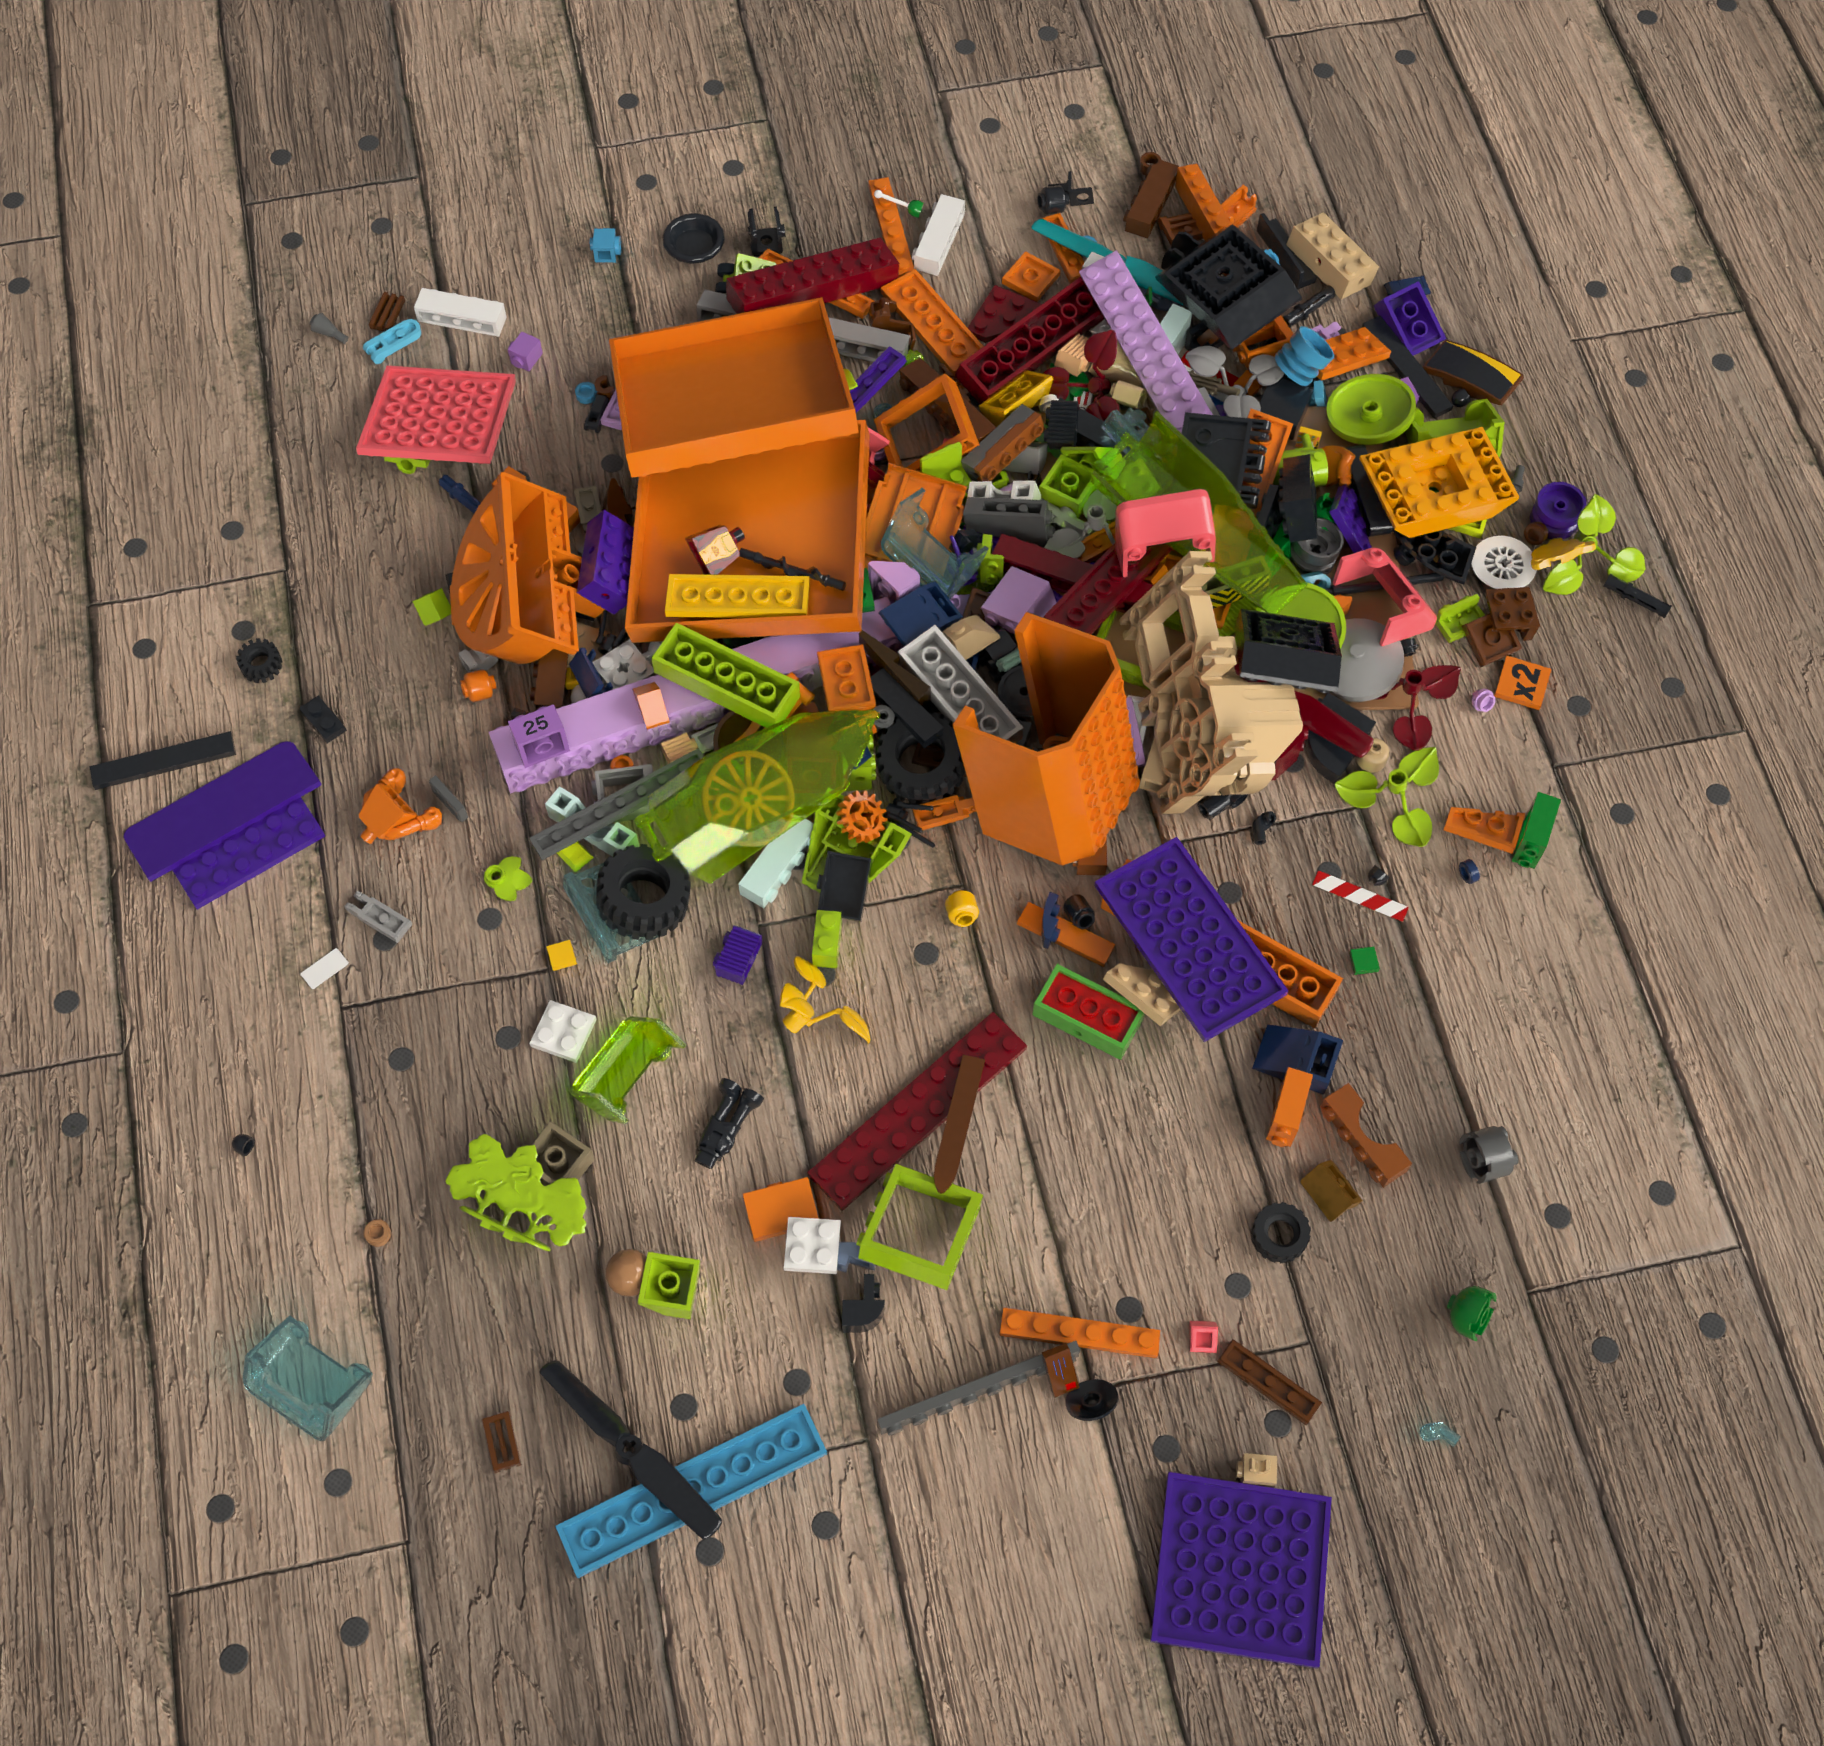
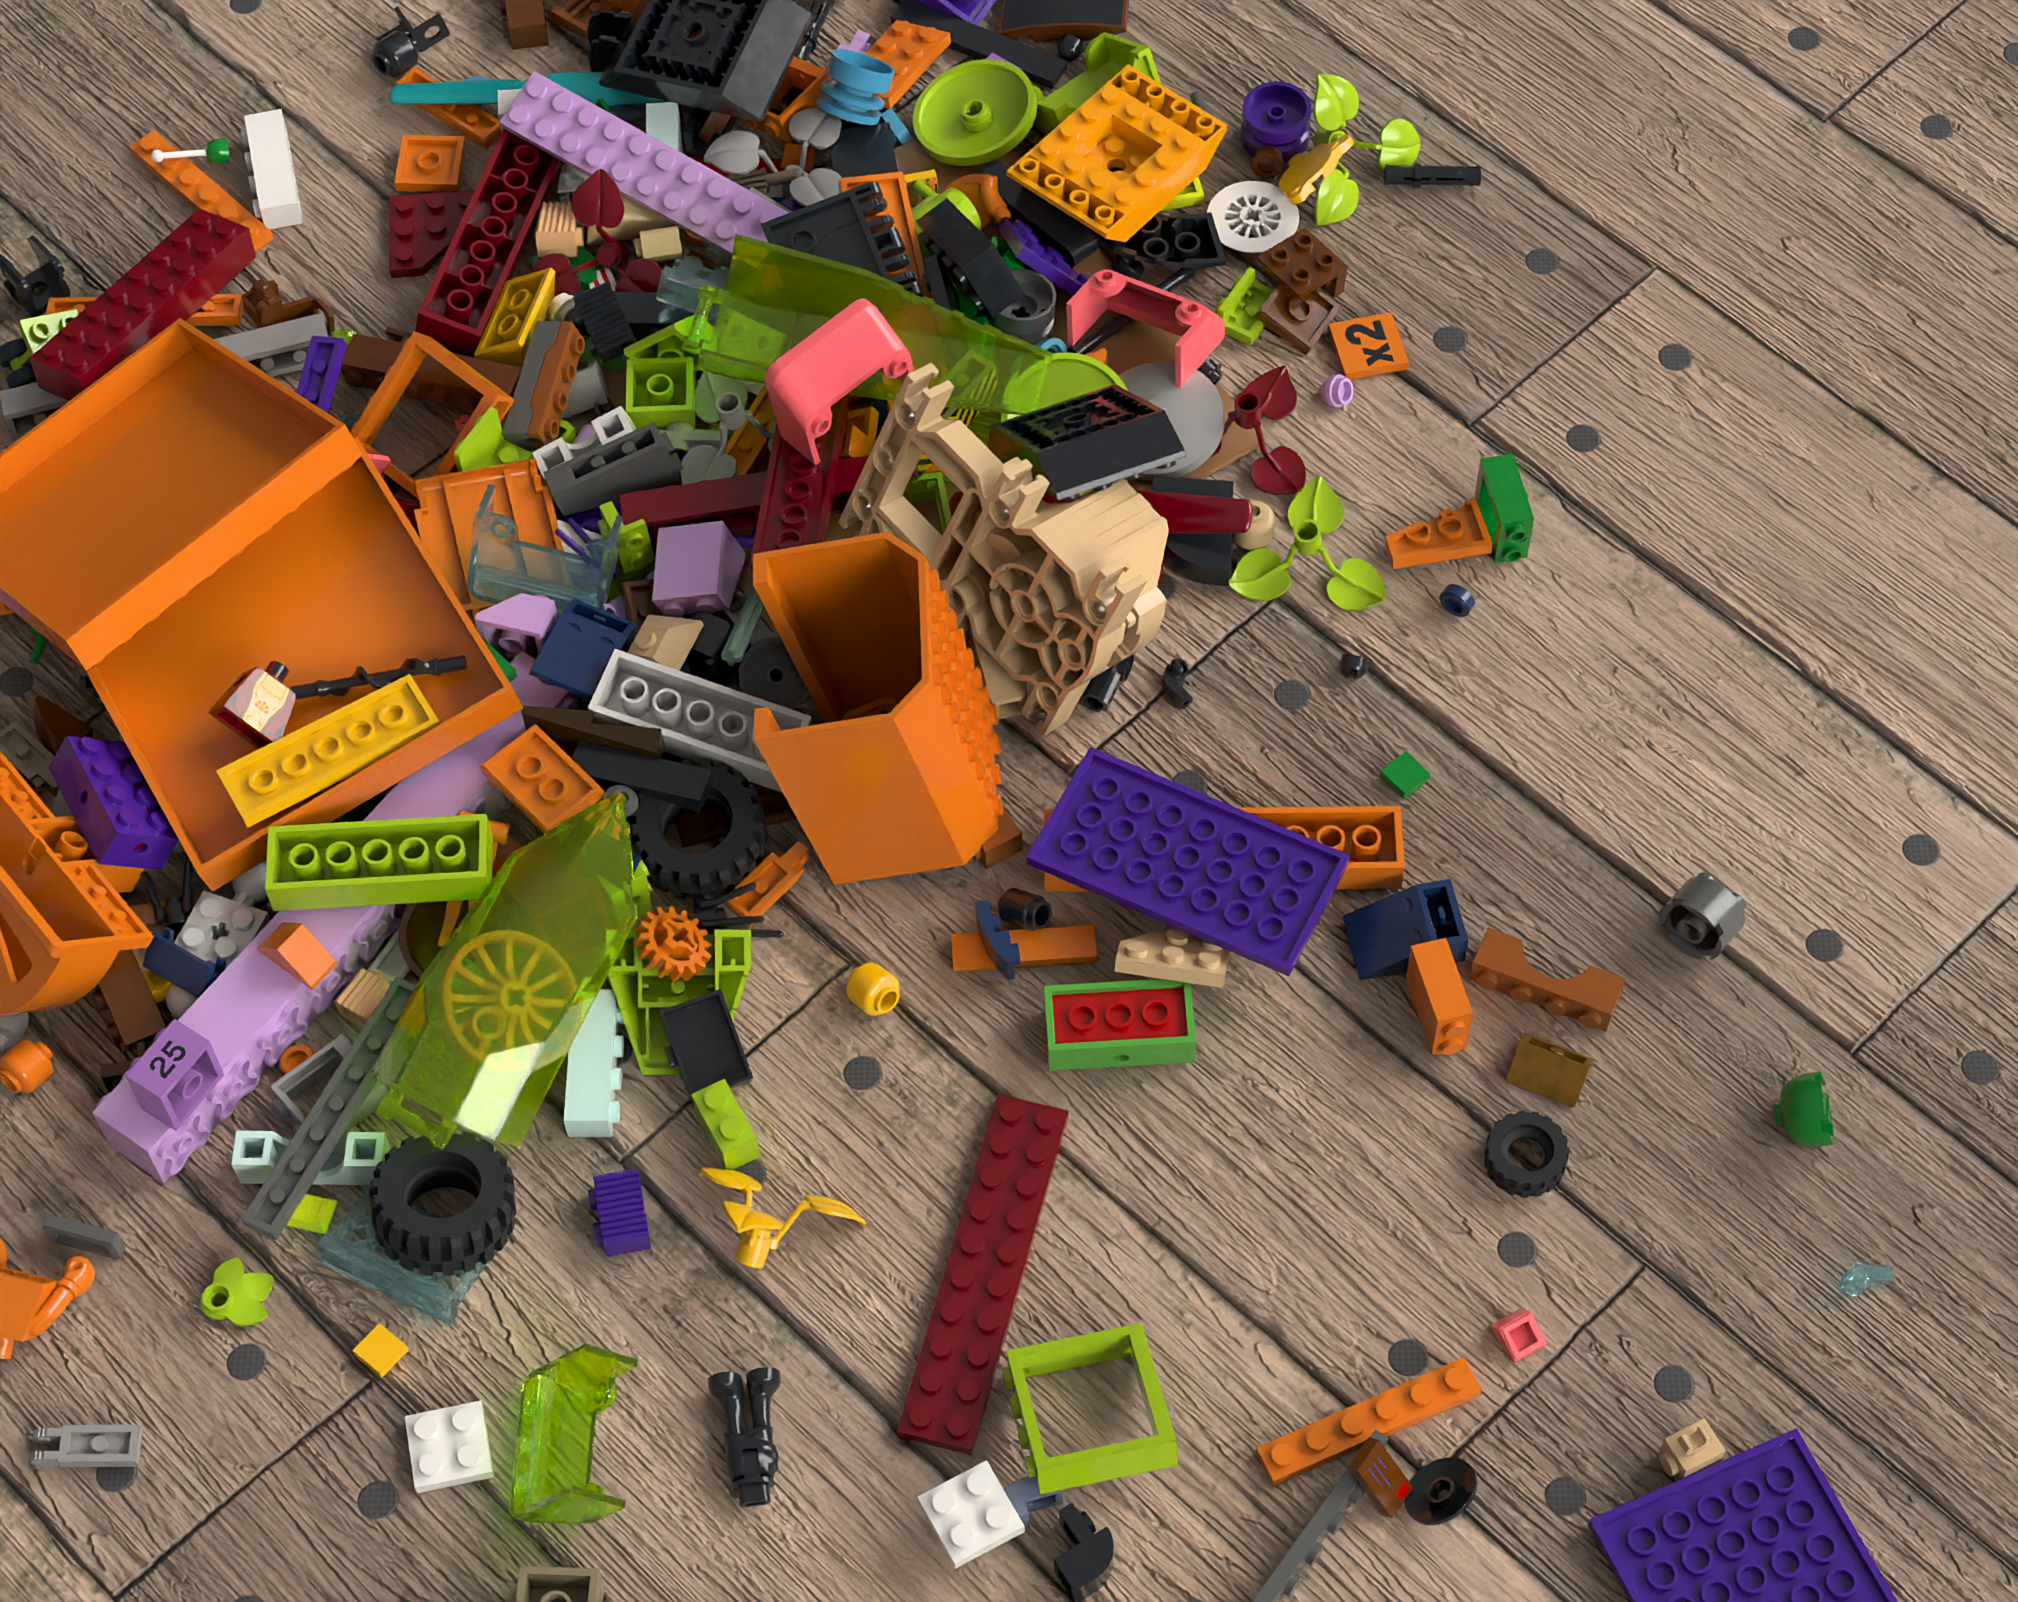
camera: 30 degrees left, 5 degrees down
(324, 968) = (54, 1560): white sticker -> none
(771, 1207) = (884, 1501): orange container -> none
(932, 319) = (340, 279): orange plate -> none
(957, 1122) = (1050, 1253): reddish brown piece -> none
(966, 540) = (578, 526): black plate -> none
(1269, 1382) = (1632, 1340): reddish brown tile -> none
(1360, 896) = (1347, 701): sticker -> none

